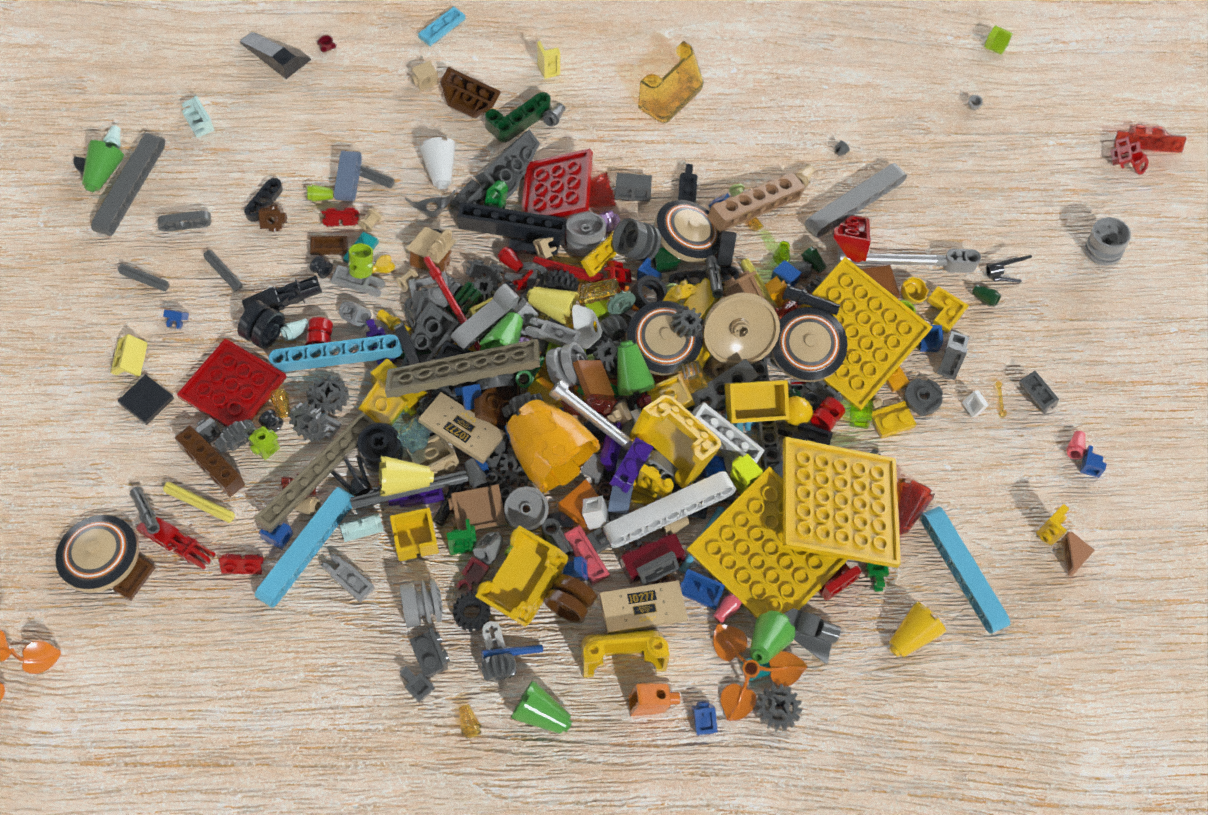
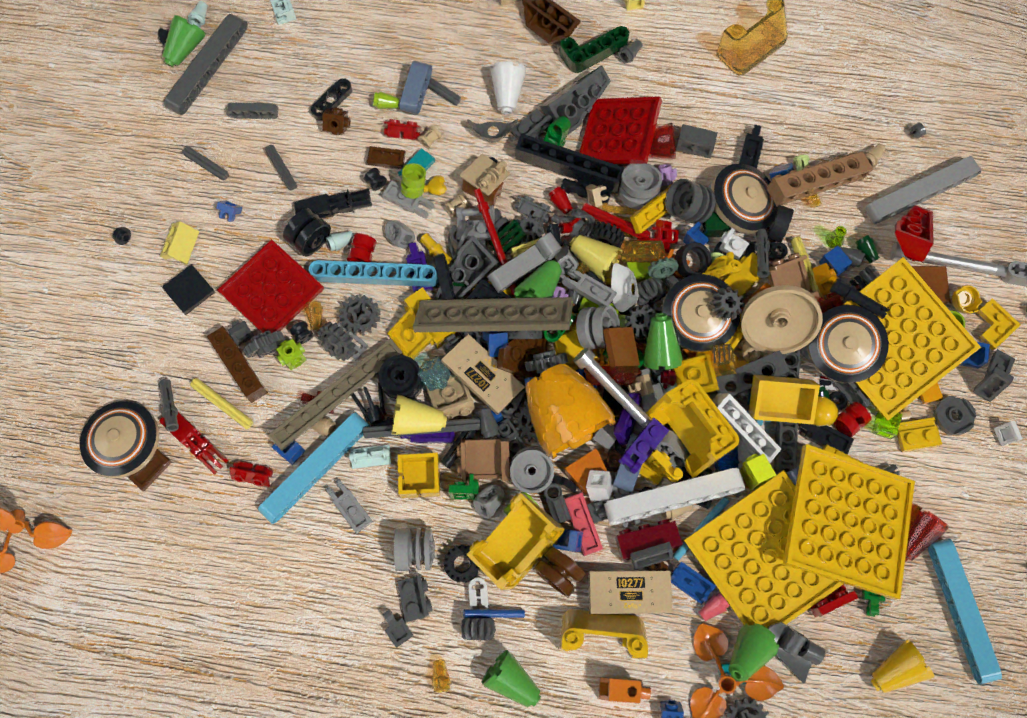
camera: 15 degrees right, 10 degrees up
(67, 358) = (122, 235): none -> black plate
(473, 572) = (471, 524): dark red plate -> none
(684, 272) = (733, 244): none -> white bracket

